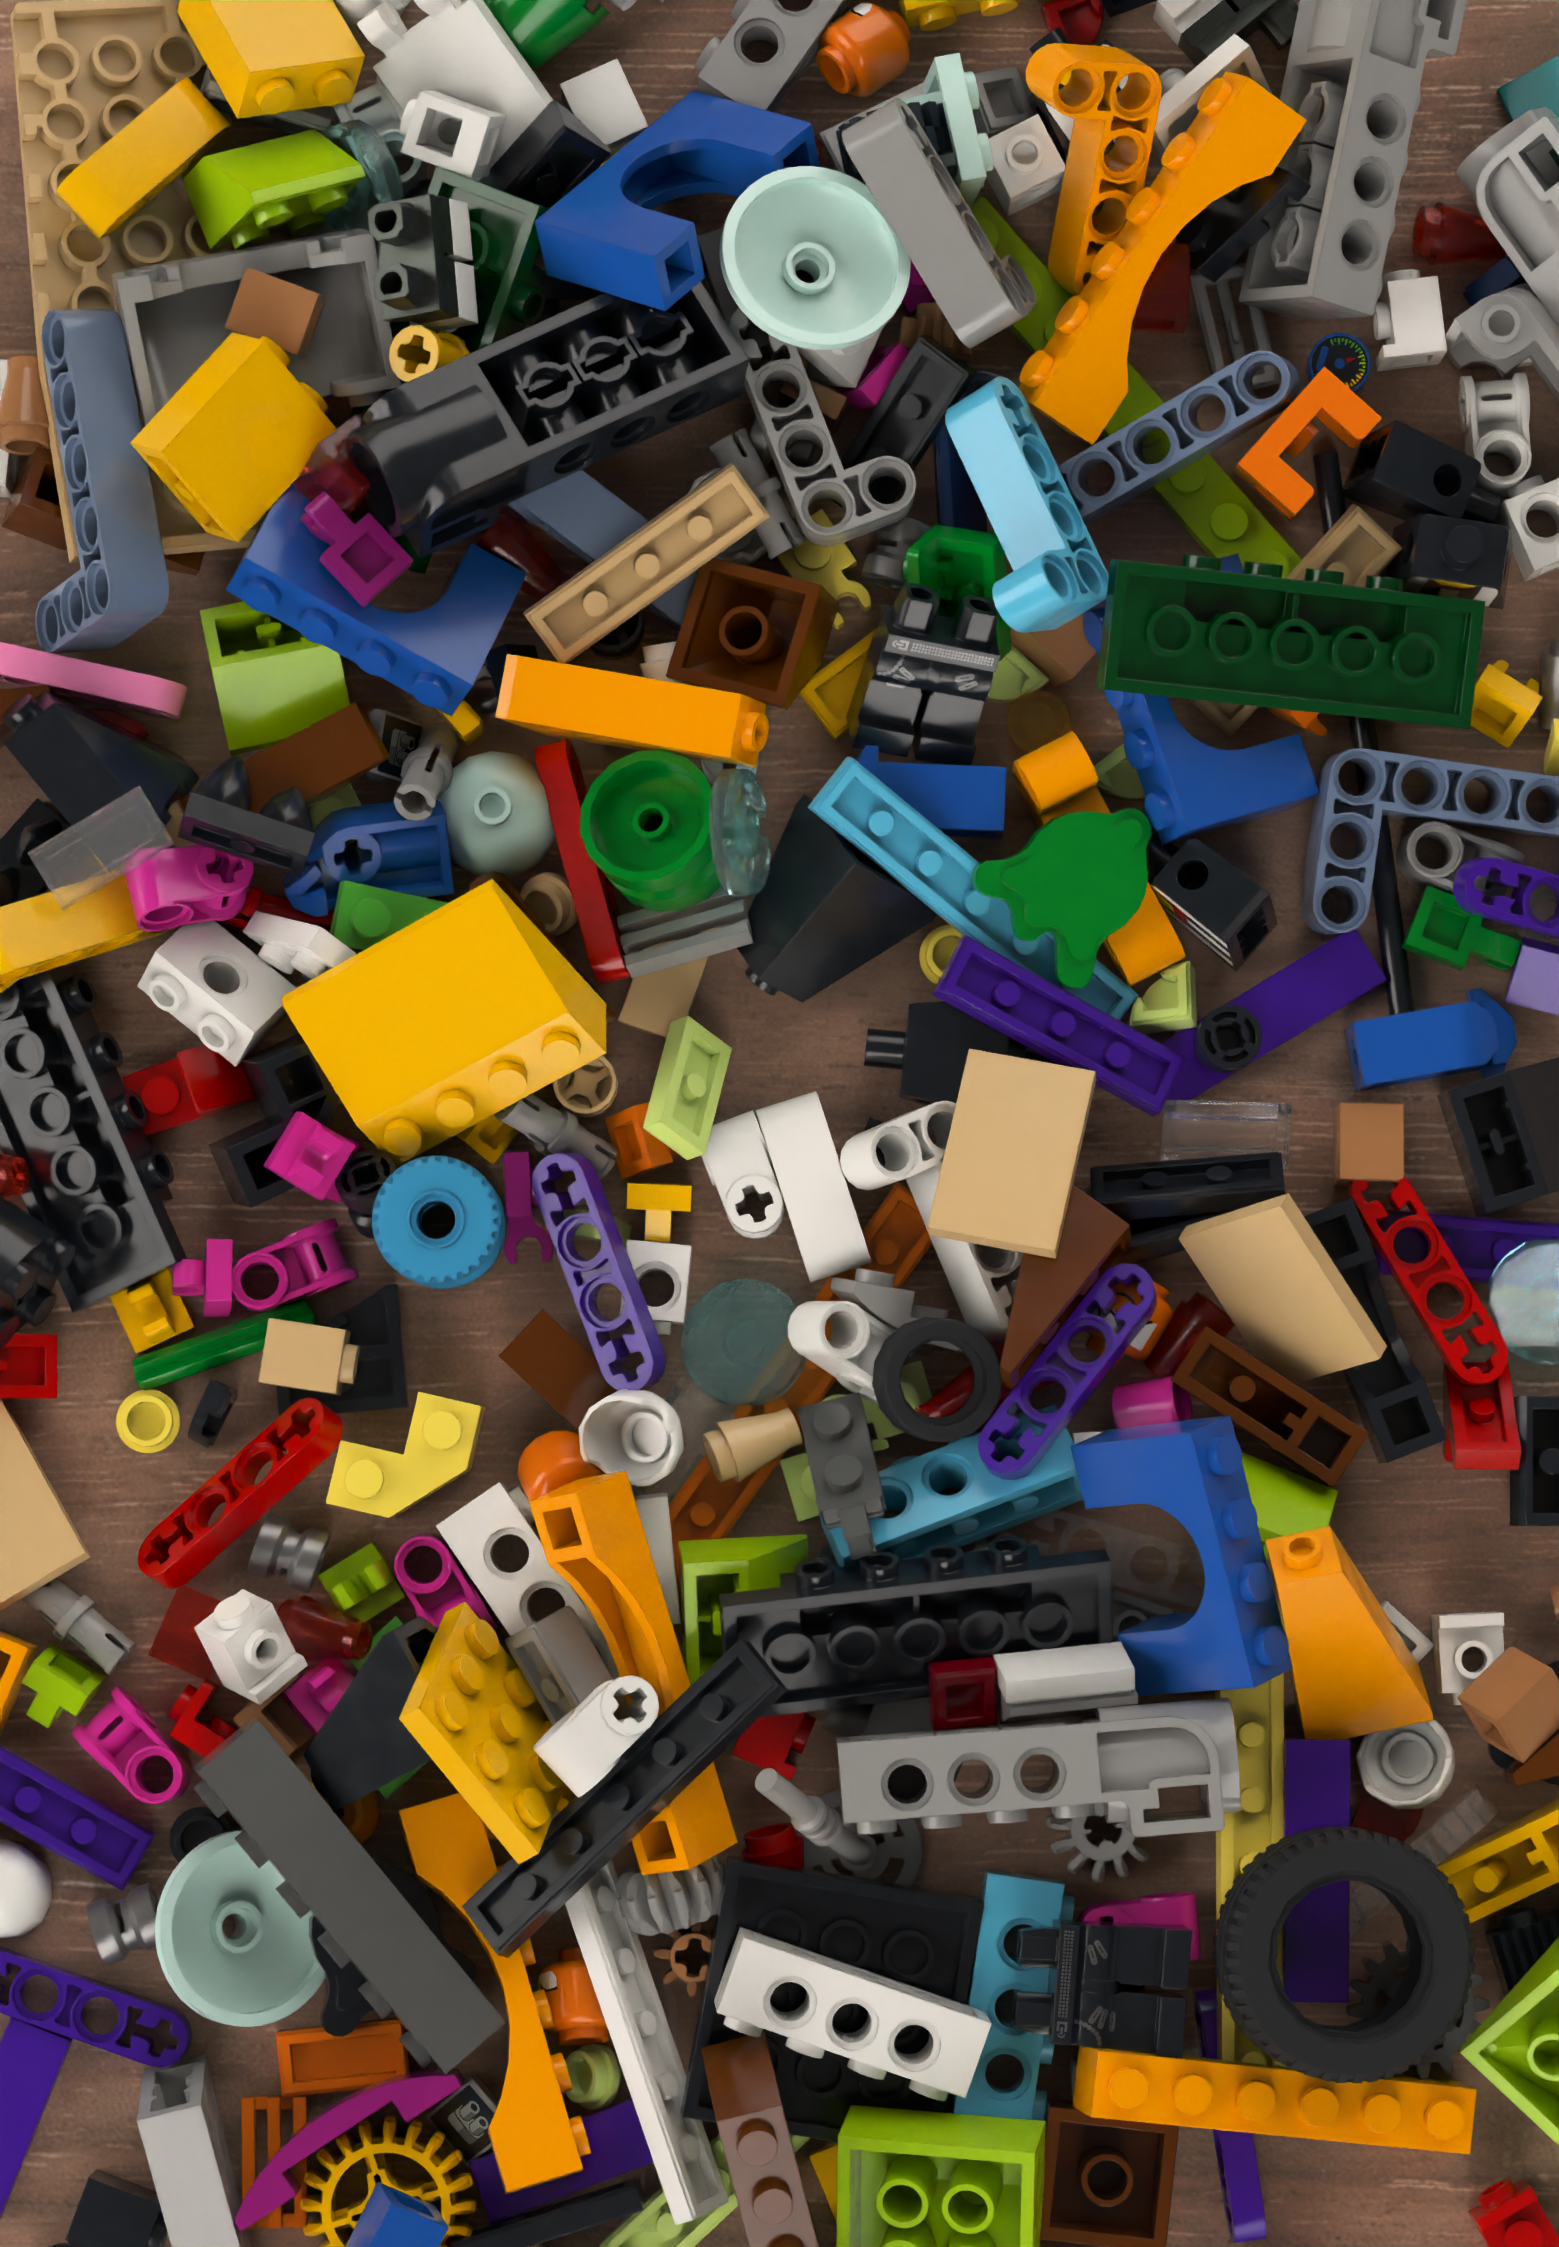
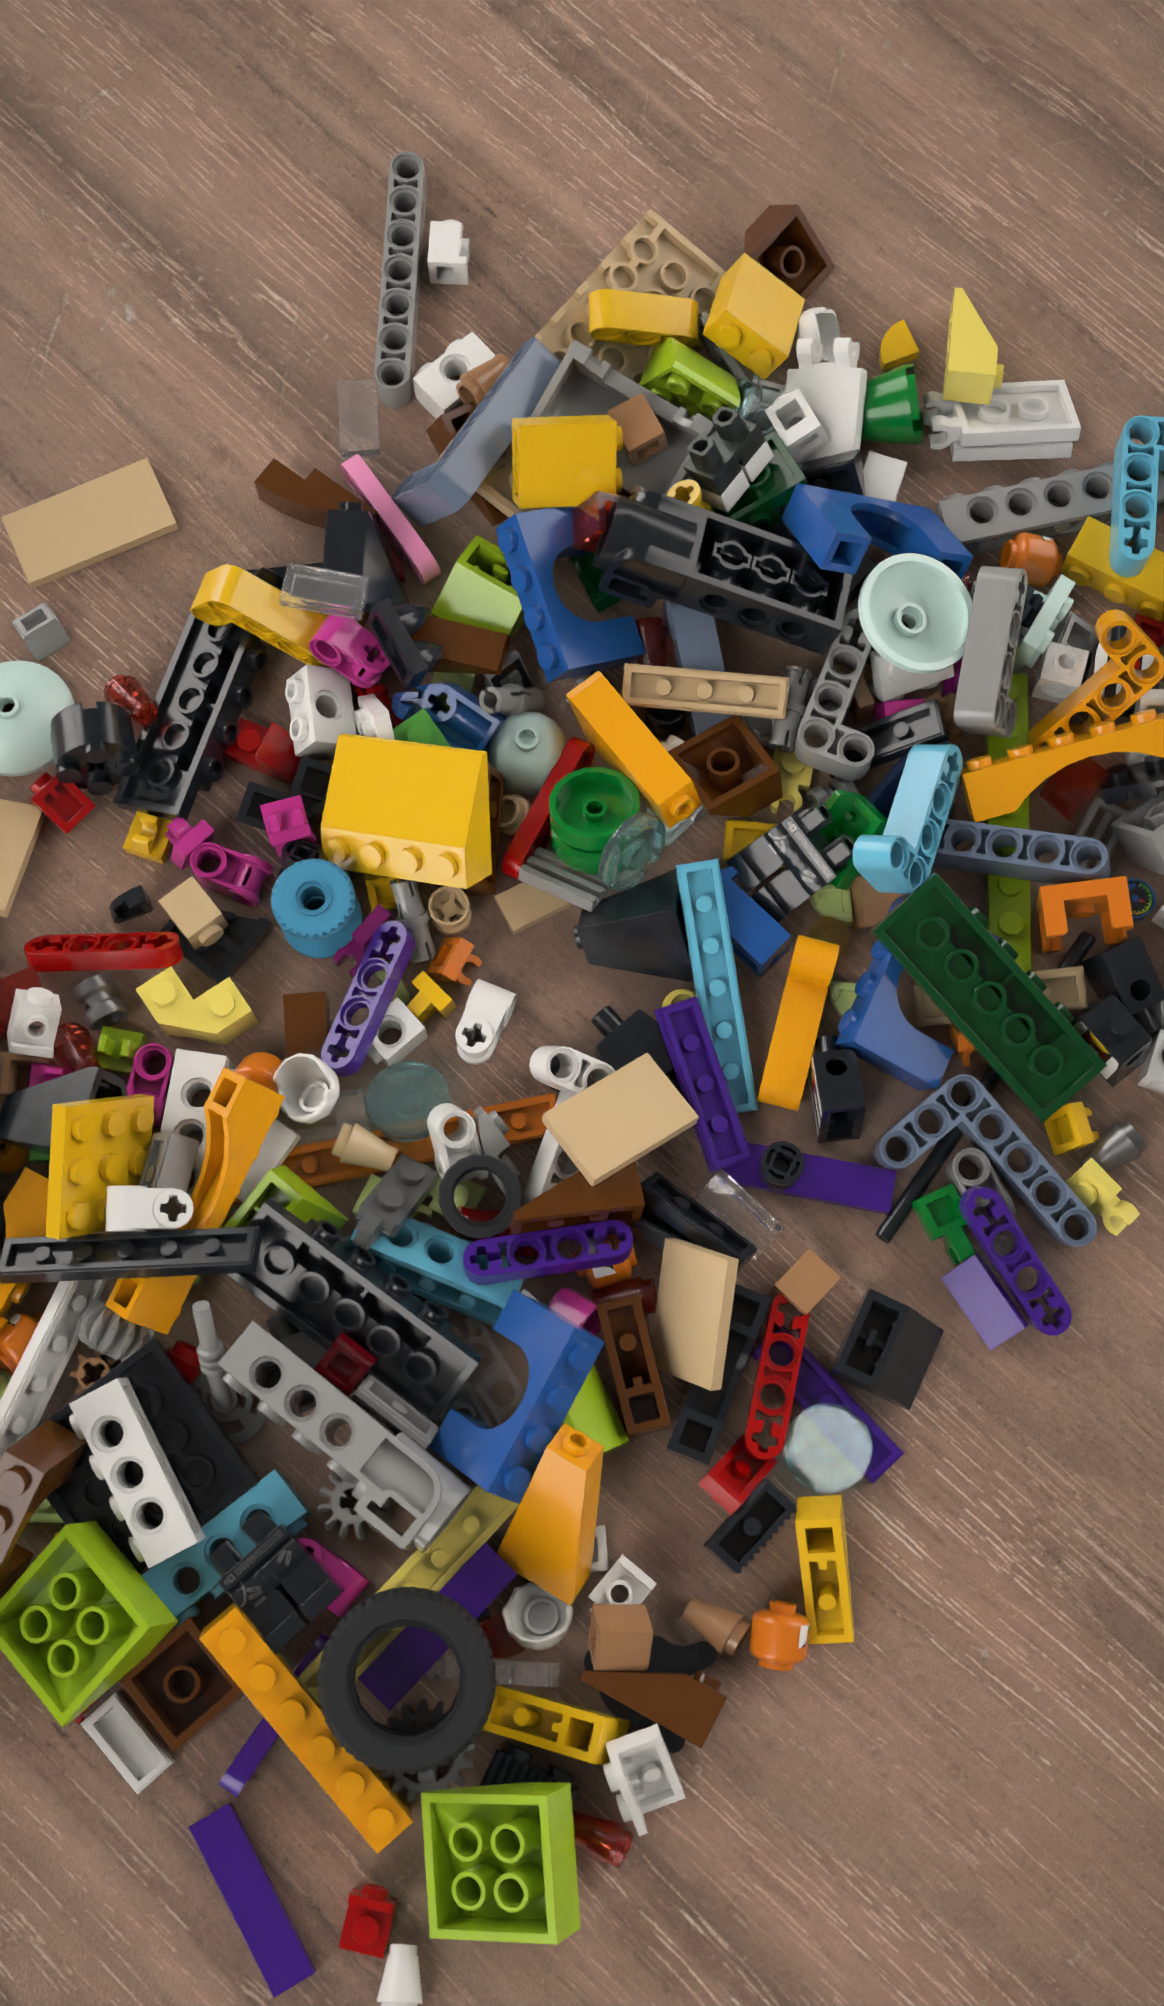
camera: 45 degrees right, 10 degrees down
(148, 1421) = (98, 884): light yellow plate -> none
(214, 1347) = (156, 875): green axle -> none
(359, 554) = (569, 559): magenta plate -> none
(465, 723) = (553, 697): yellow tile -> none
(687, 1088) = (494, 953): yellowish green plate -> none
(771, 1739) = (237, 1305): red brick -> none
(813, 1186) = (509, 1055): white beam -> none
(1064, 1672) = (403, 1399): white tile -> none
(1073, 880) = (774, 1018): green tile -> none
(1168, 1002) = (769, 1126): yellowish green tile -> none
(1431, 1043) = (883, 1262): blue piece -> none

